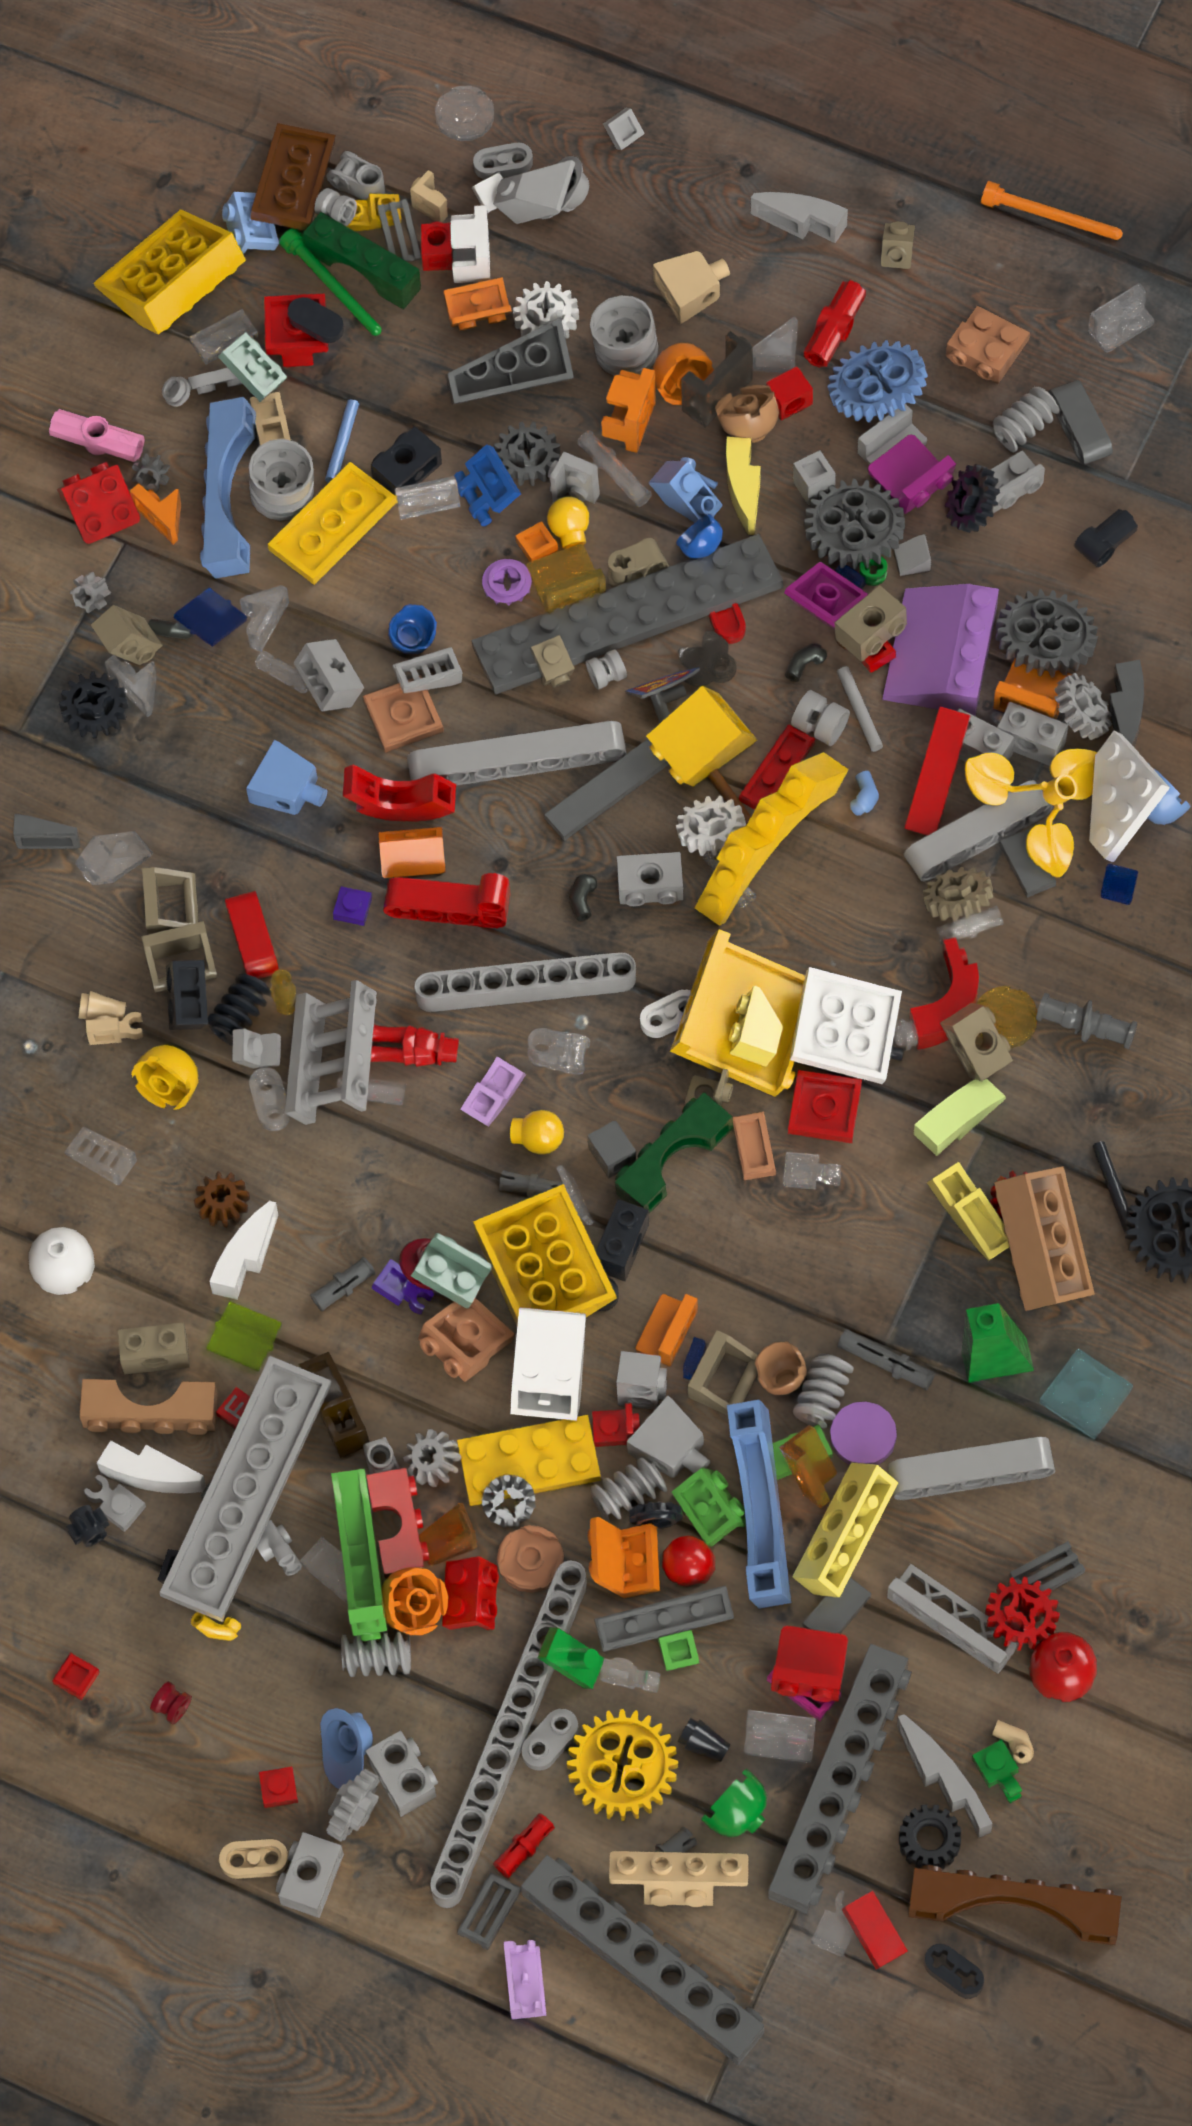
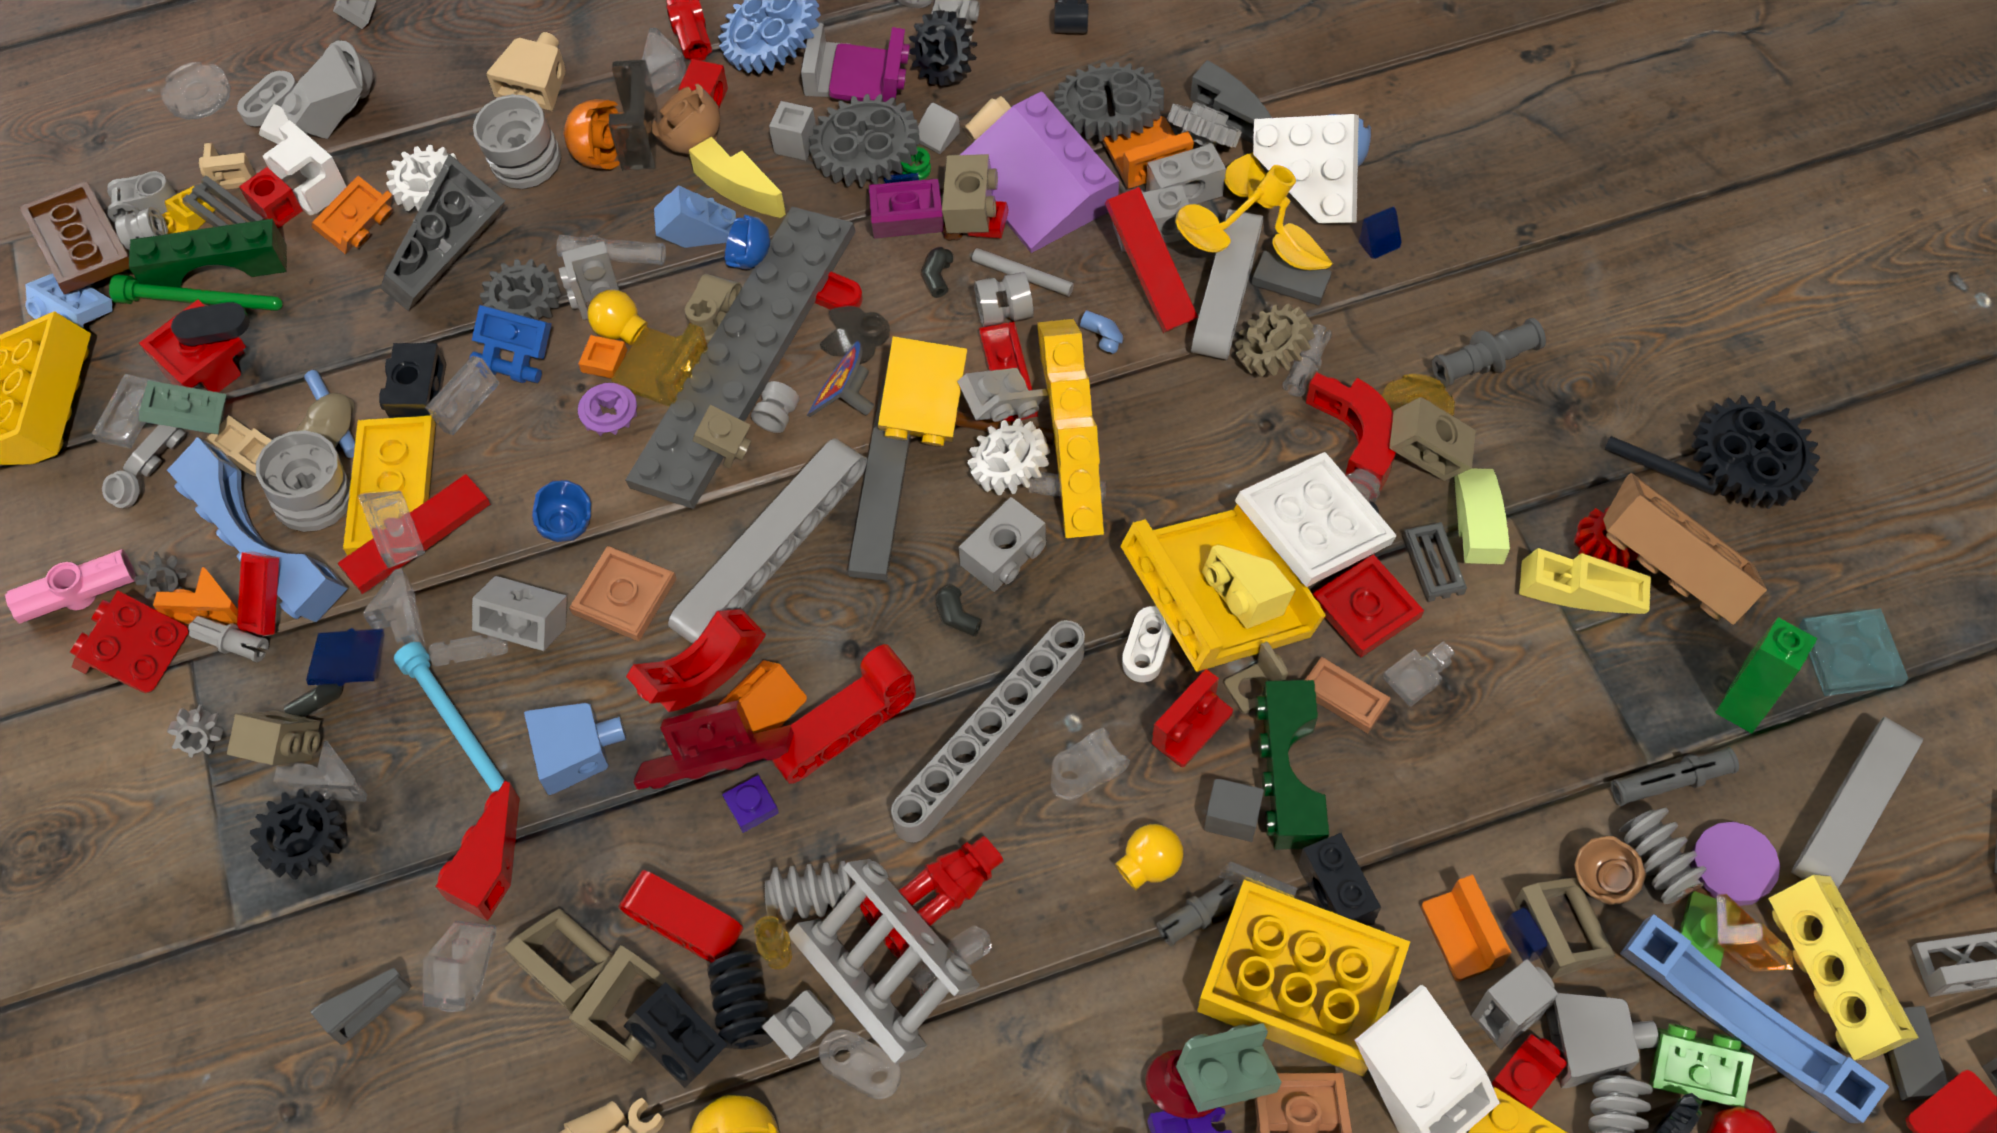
camera: 45 degrees left, 5 degrees down
(156, 547) = (228, 638): none -> light grey axle
(176, 811) = (484, 863): none -> red slope
(194, 533) = (258, 593): none -> red tile
(245, 654) = (414, 661): none -> medium azure piece
(302, 555) = (391, 526): none -> clear slope
(314, 570) = (432, 521): none -> red tile
(325, 979) = (806, 890): none -> light grey piece
(331, 446) = (329, 417): none -> dark tan arm
(358, 849) = (710, 742): none -> dark red bracket
(440, 679) = (616, 512): light grey slope -> none
(493, 1092) = (1065, 857): lavender slope -> none
(634, 402) = (577, 168): orange panel -> none
(643, 1078) = (1191, 720): none -> red bracket
(738, 779) = (1000, 394): none -> light grey bracket
(887, 1141) = (1442, 589): none -> dark grey tile
(953, 576) = (986, 117): none -> tan cone

